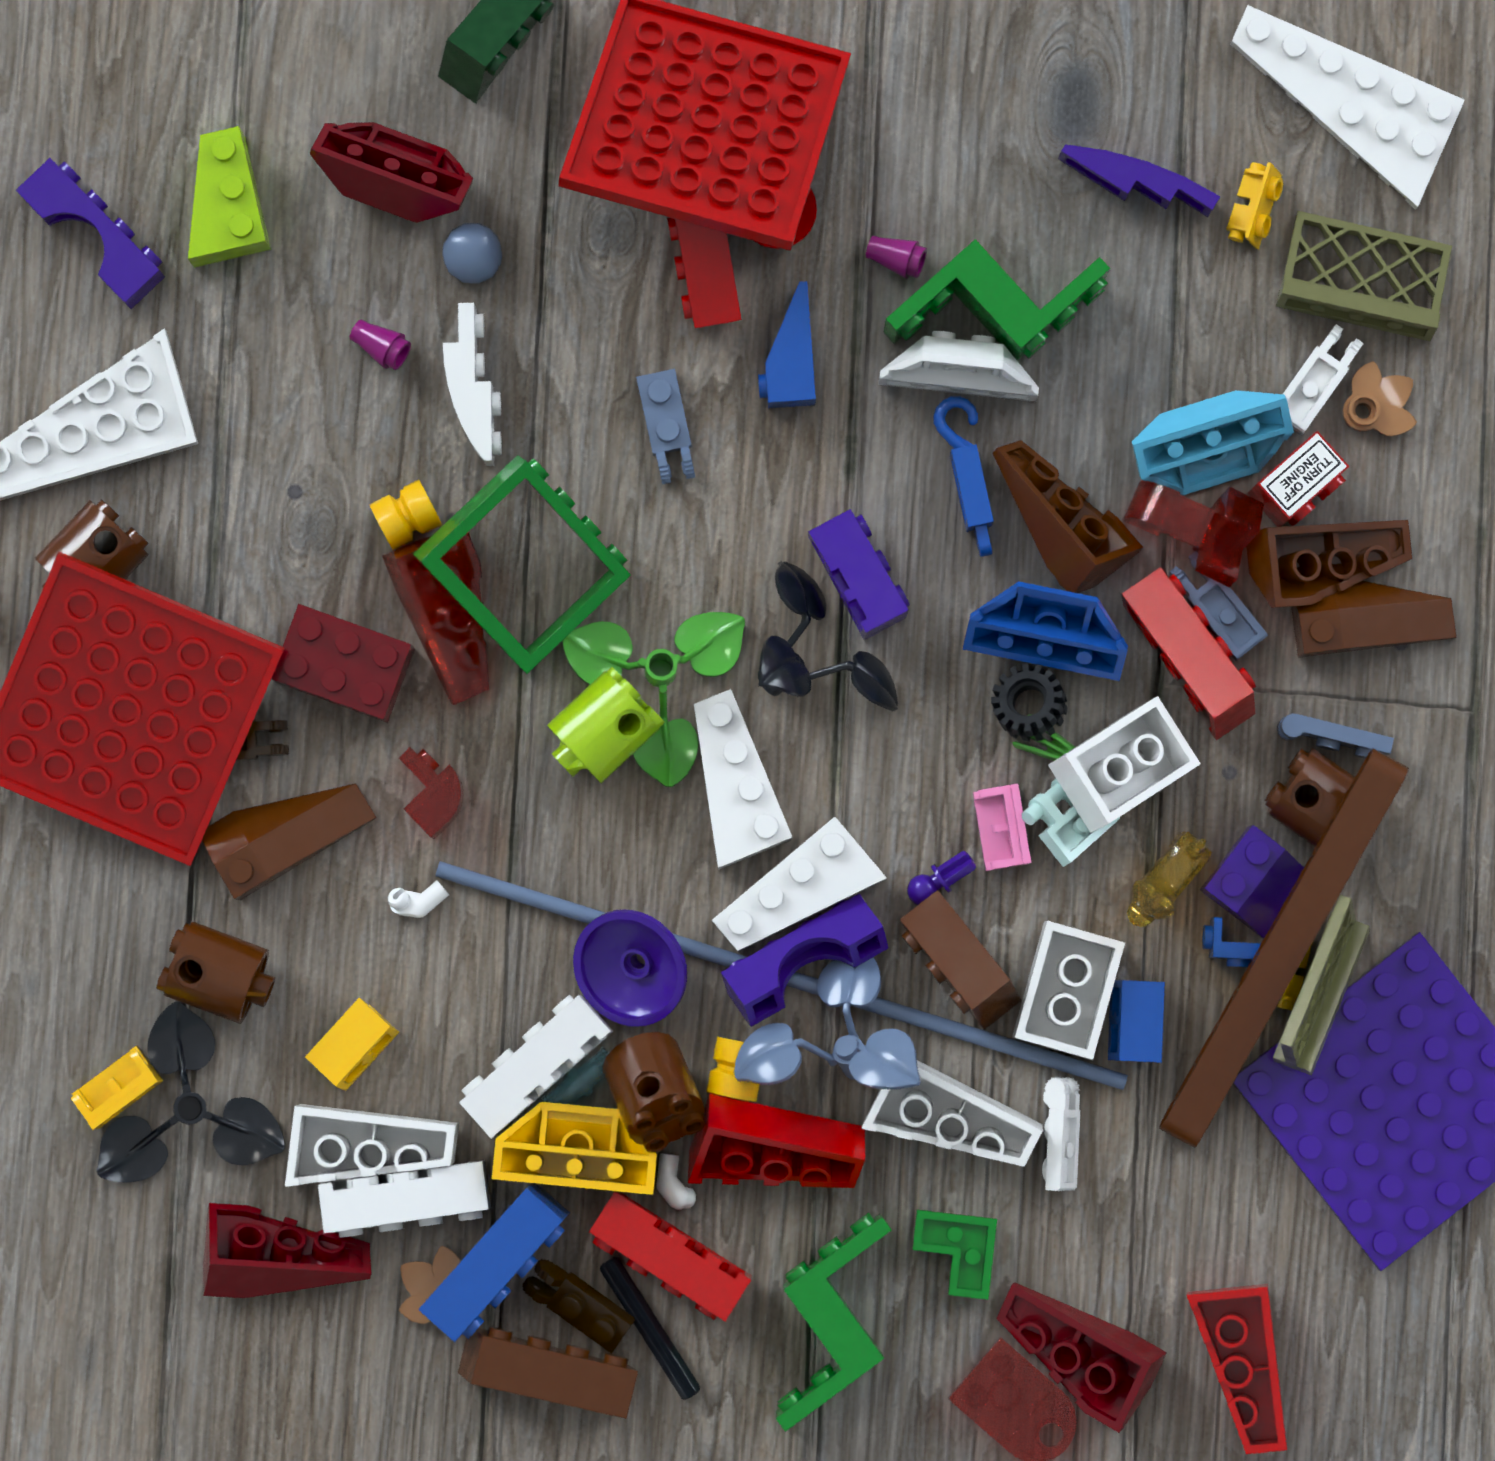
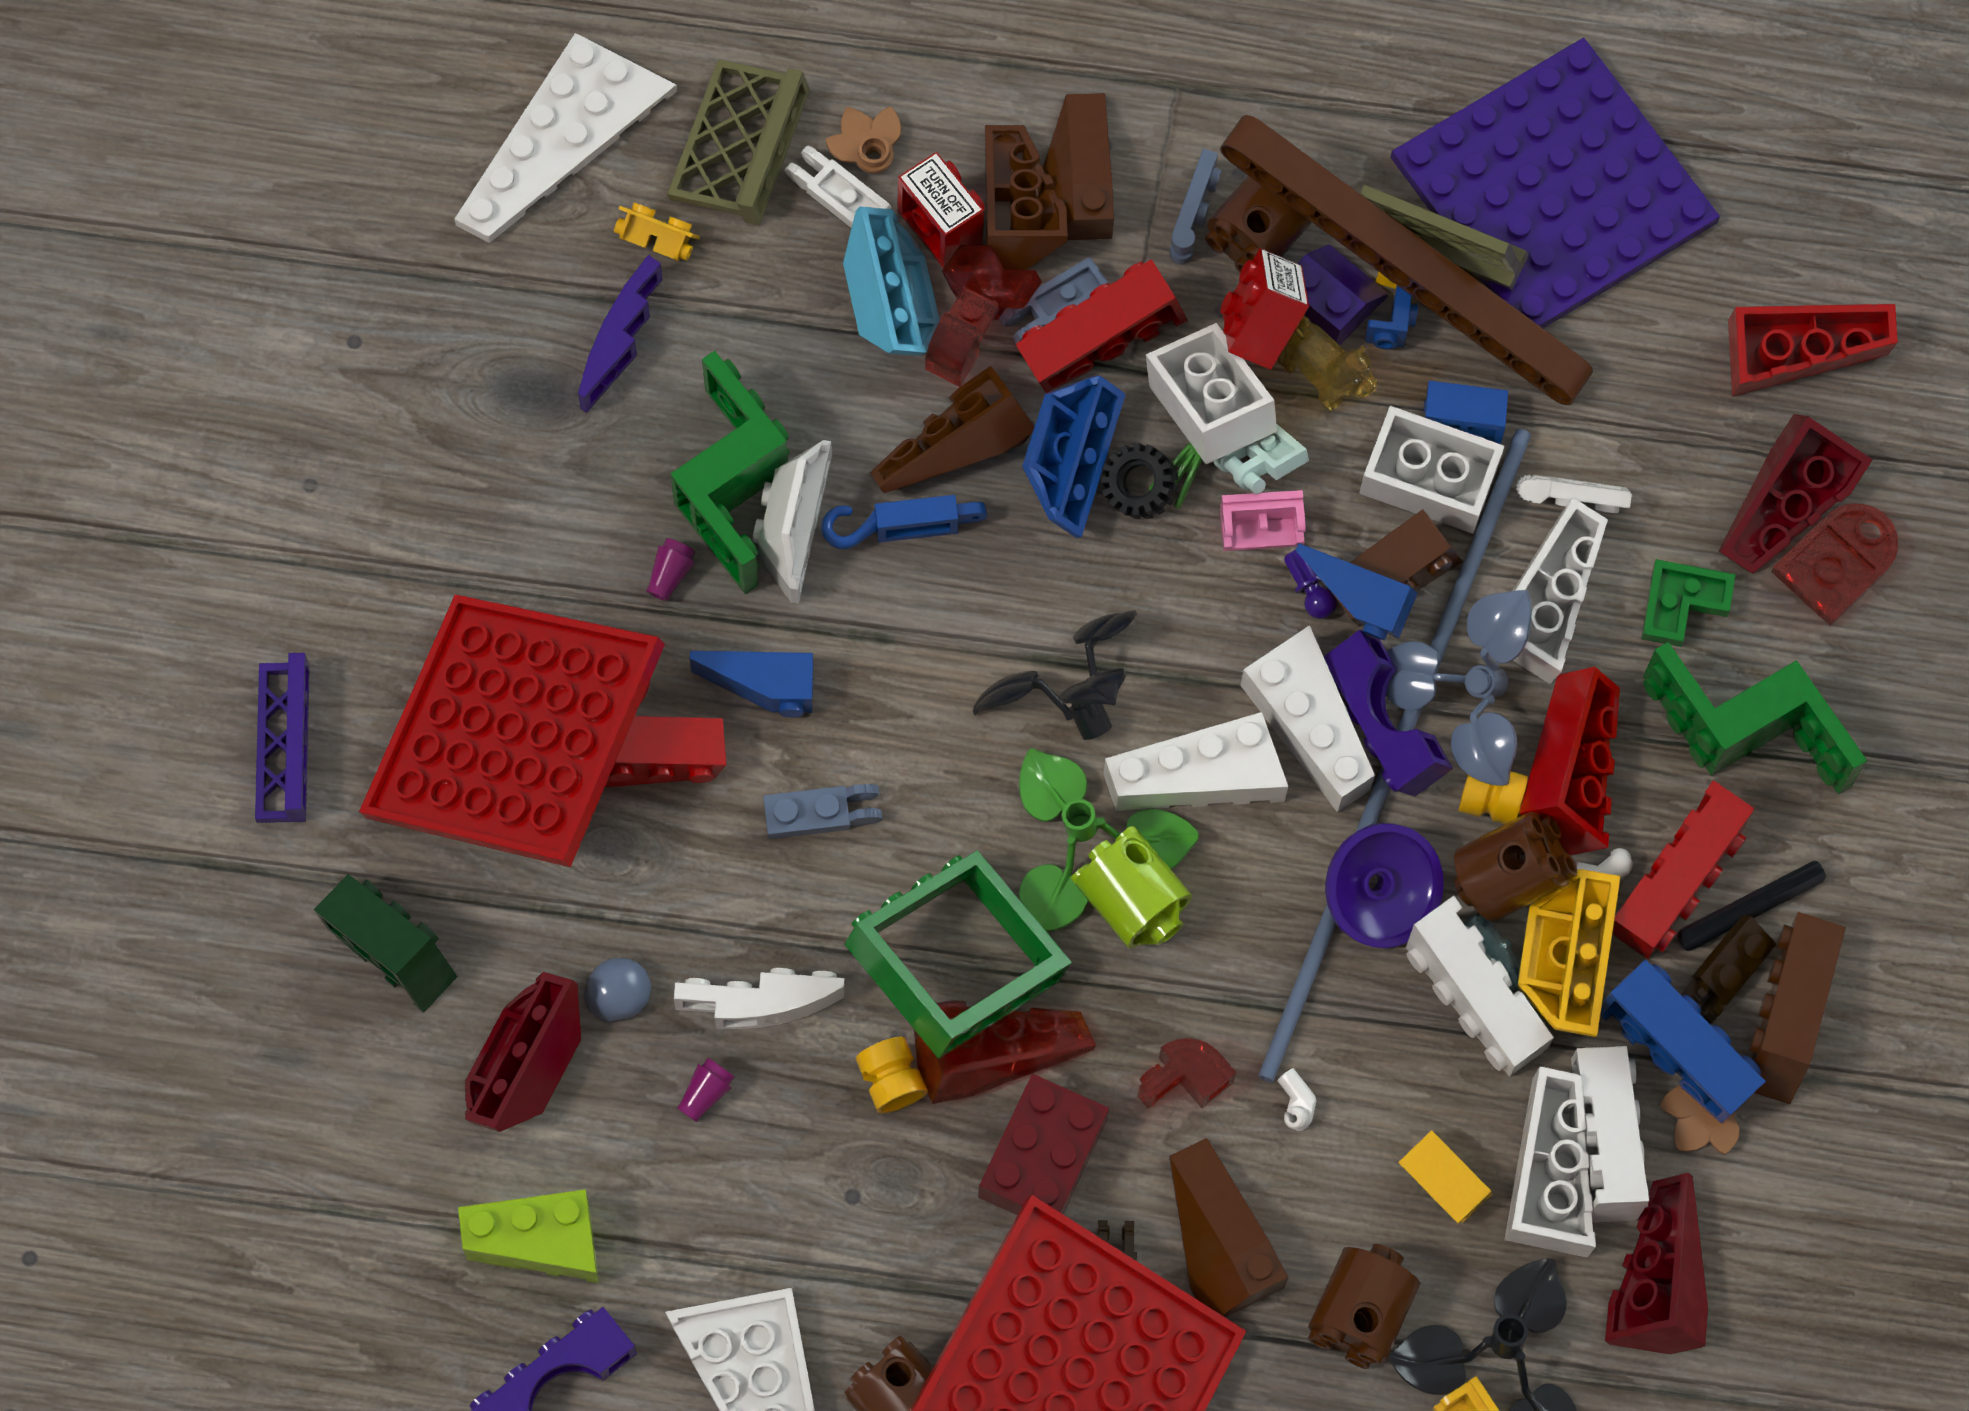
camera: 90 degrees left, 15 degrees down
(859, 573) = (997, 629): dark purple wedge -> none
(919, 924) = (1370, 597): none -> blue slope
(1212, 808) = (1264, 308): none -> red brick

